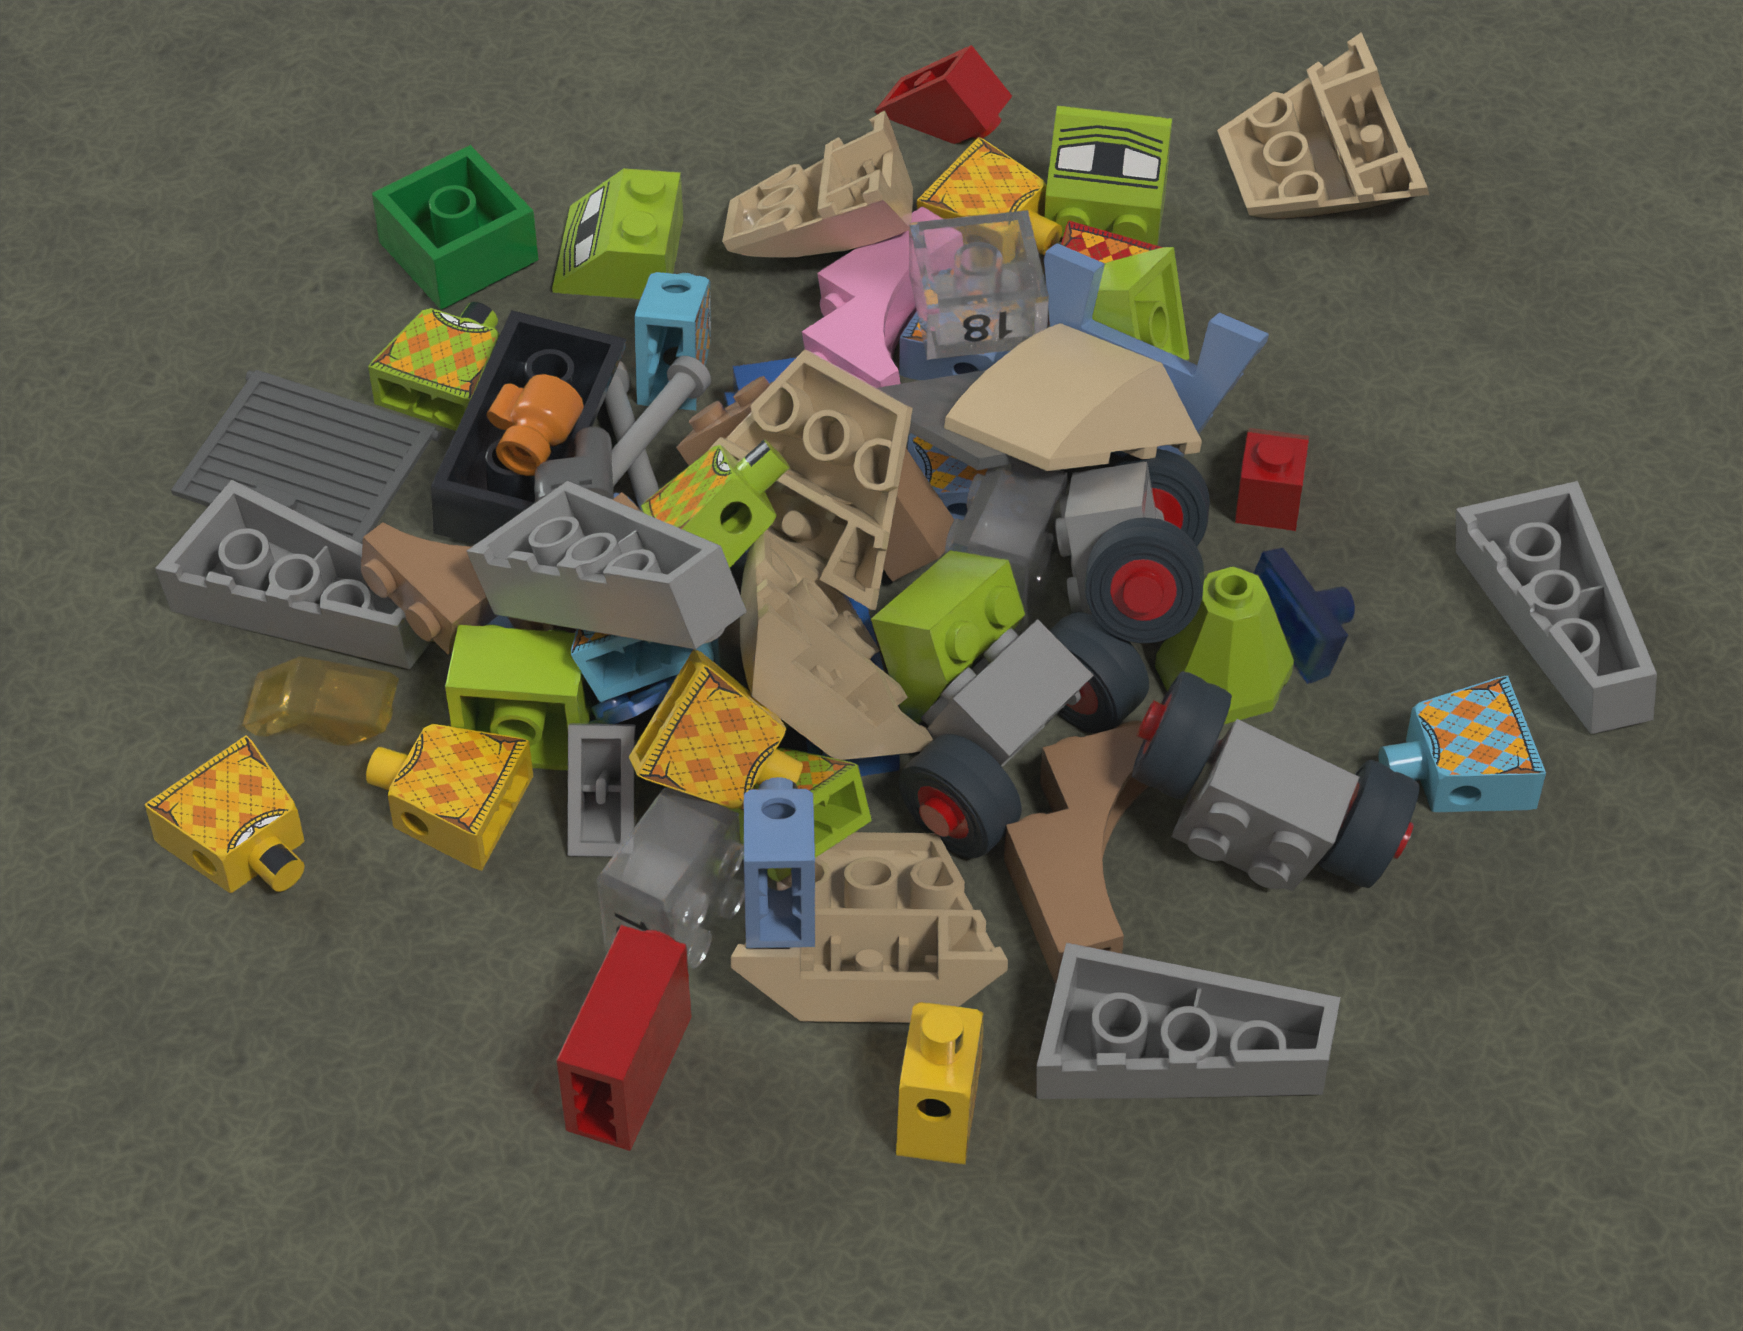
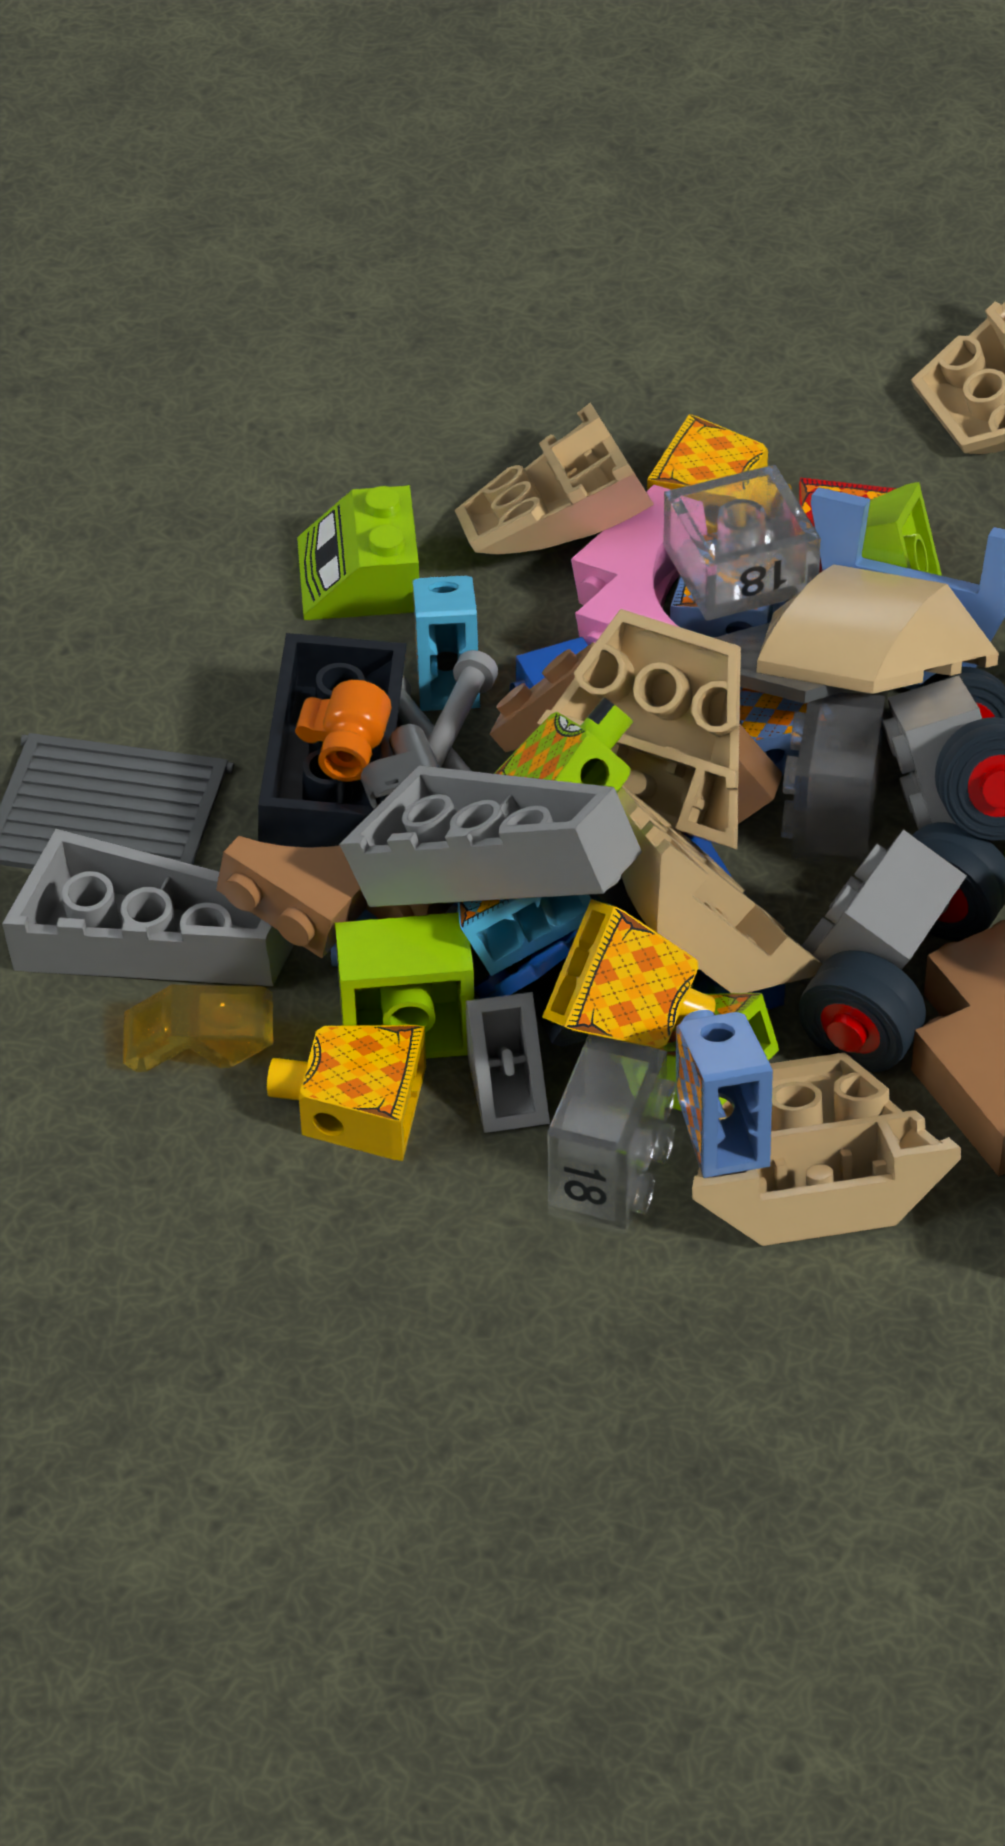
camera: 10 degrees left, 5 degrees down
(231, 821) = (144, 1150): yellow torso -> none
(435, 364) = (219, 702): lime torso -> none
(455, 226) = (196, 568): green brick -> none
(625, 1037) = (607, 1281): red brick -> none
(943, 1065) = (918, 1247): yellow torso -> none
(945, 624) = (808, 852): lime slope -> none
(949, 98) = (644, 385): red slope -> none
(1109, 171) = (826, 424): lime slope -> none

